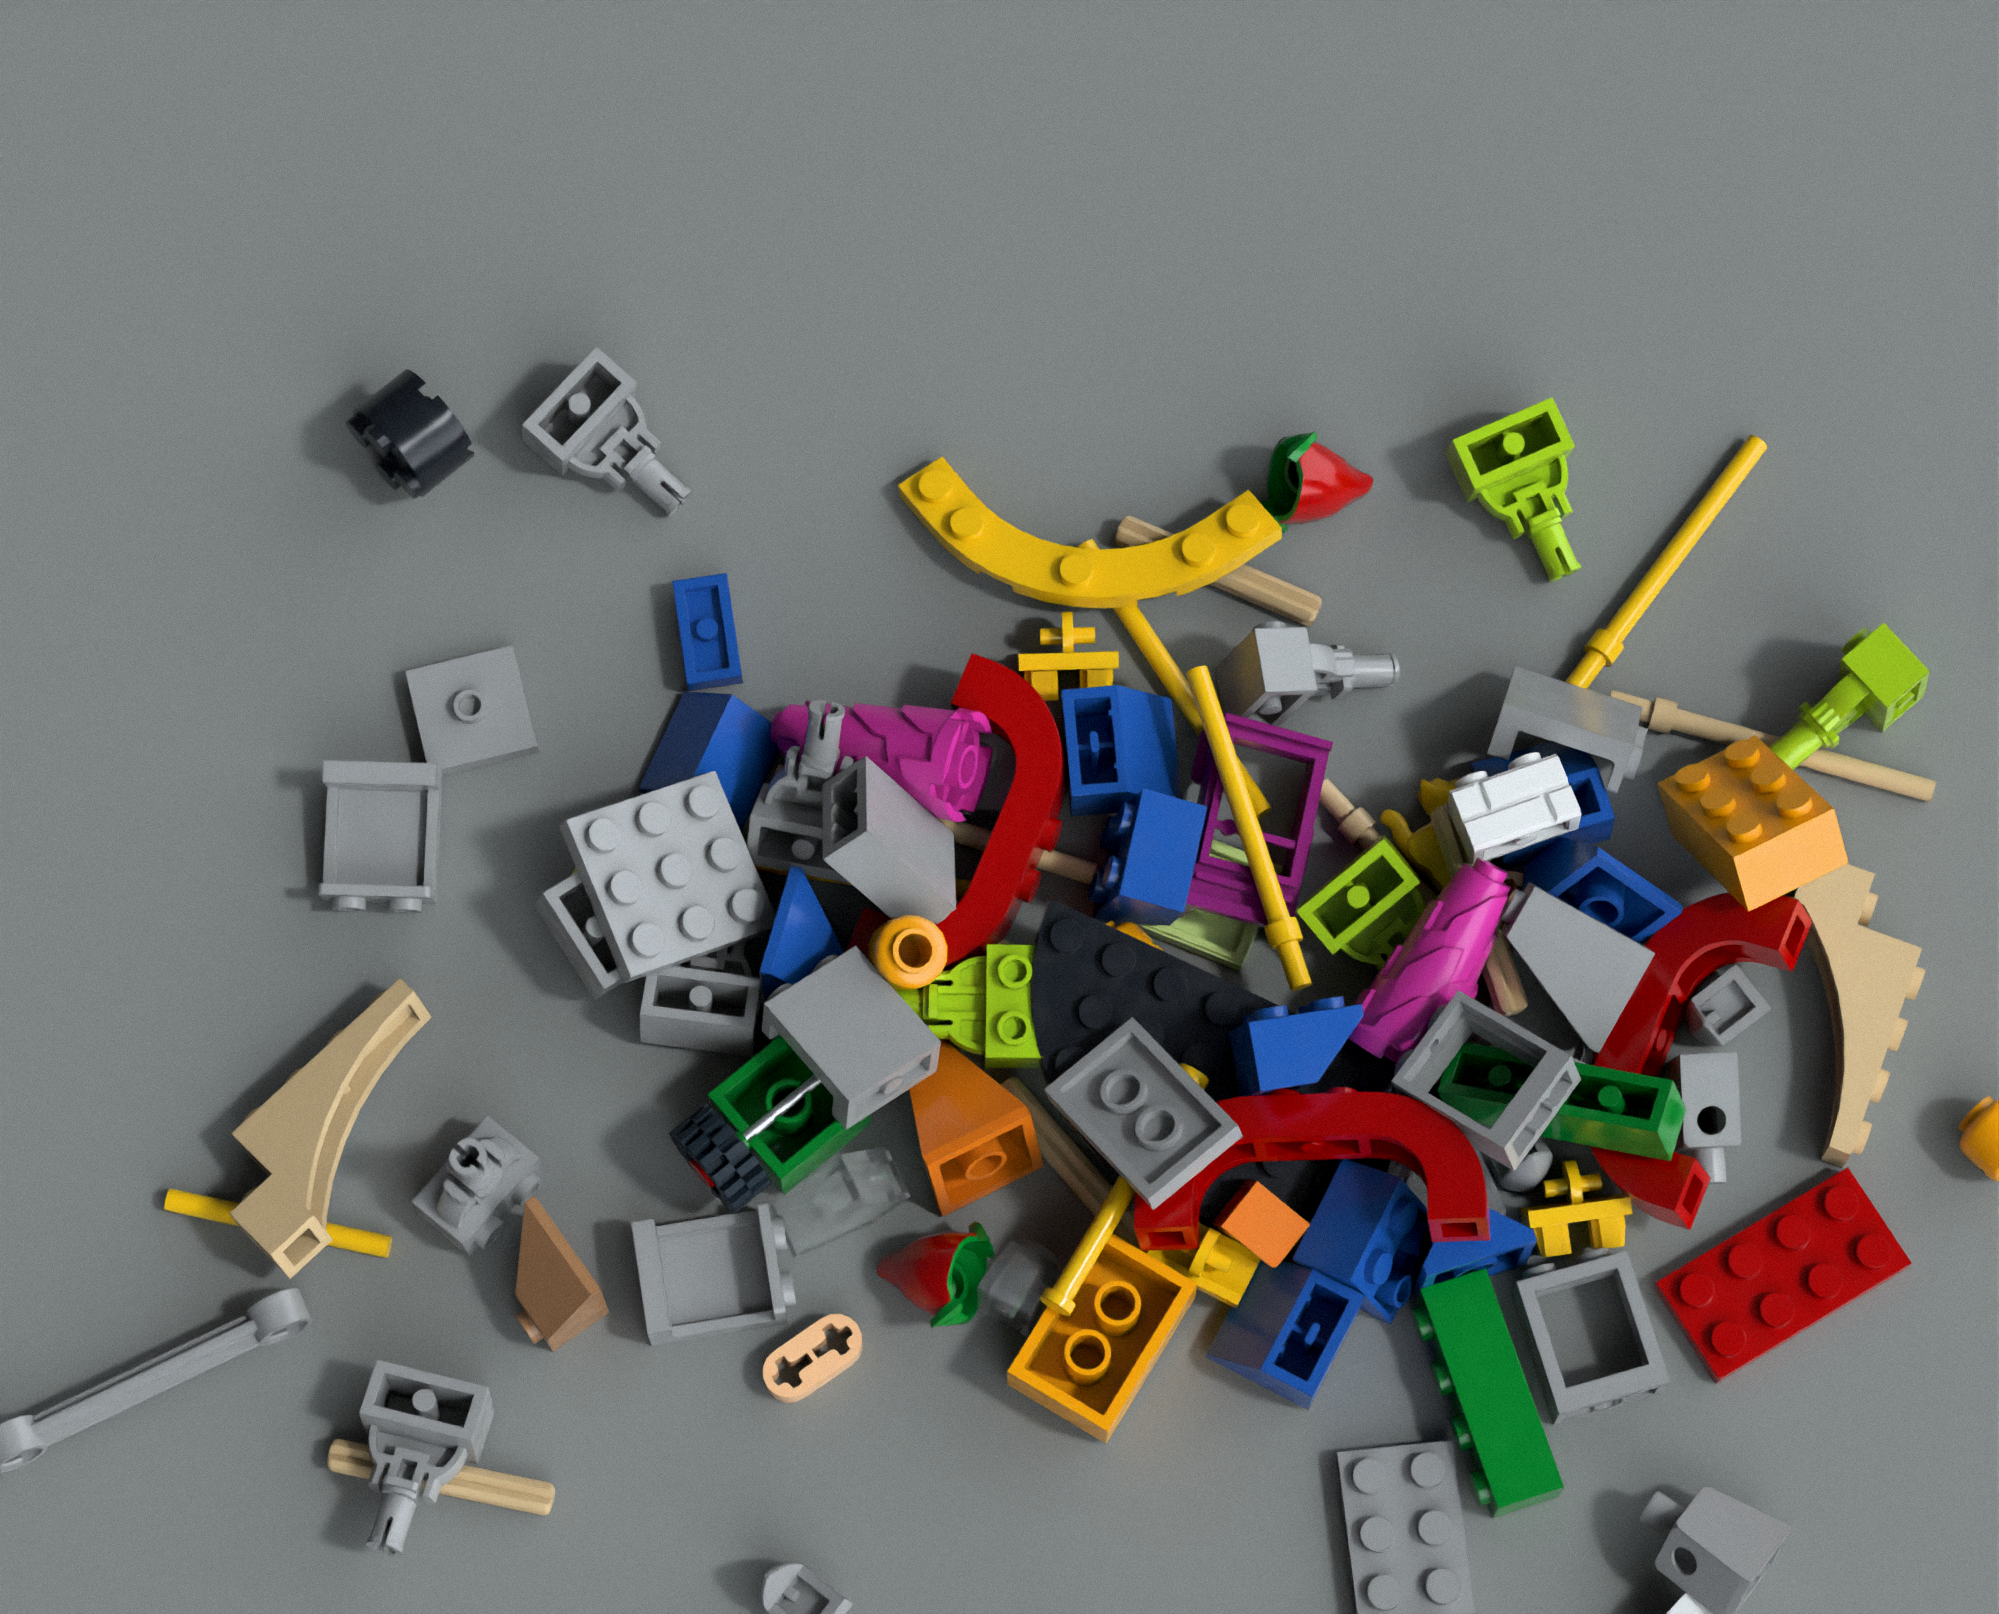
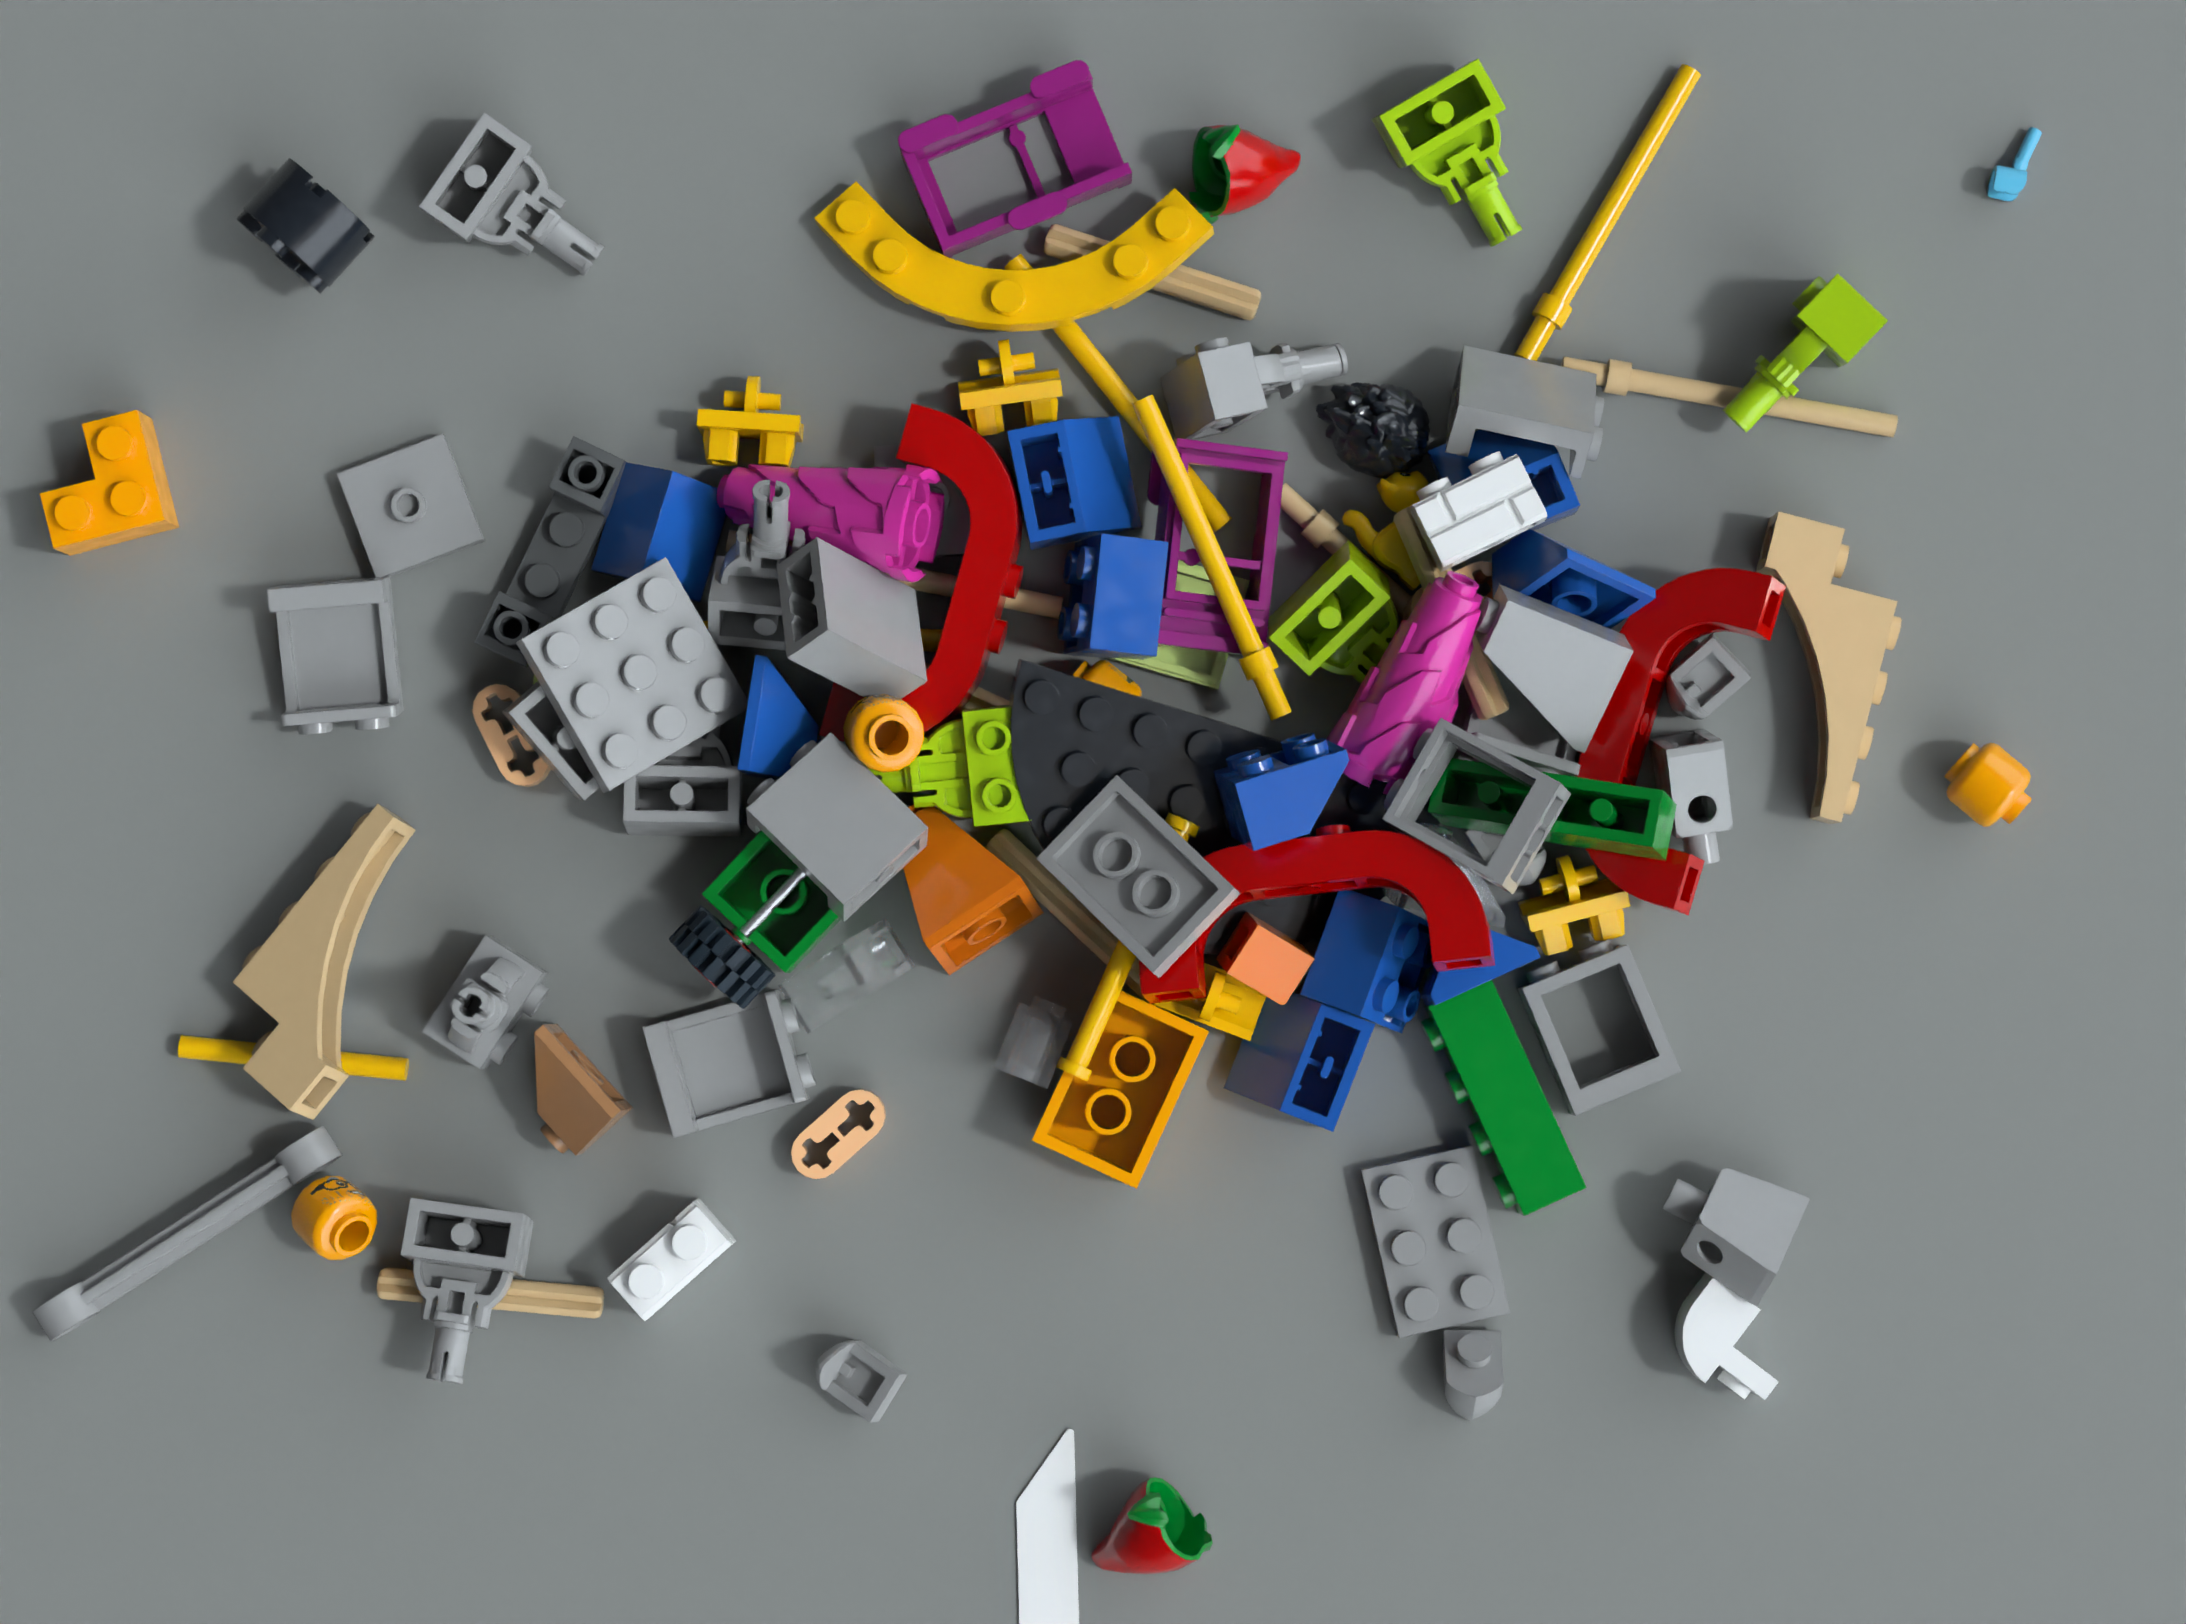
camera: 10 degrees left, 15 degrees up
(195, 670) = (125, 498): none -> light orange brick
(296, 1378) = (334, 1218): none -> light orange head
(527, 940) = (500, 742): none -> light nougat beam
(616, 757) = (558, 551): none -> dark grey slope
(629, 1459) = (671, 1259): none -> white brick
(707, 632) = (639, 397): blue plate -> none
(810, 662) = (724, 428): none -> yellow hips
(933, 1265) = (943, 1039): hat -> none
(1160, 427) = (1078, 128): none -> magenta piece
(1422, 735) = (1376, 427): none -> black hair
(1752, 822) = (1719, 494): light orange brick -> none
(1782, 1275) = (1781, 941): red plate -> none

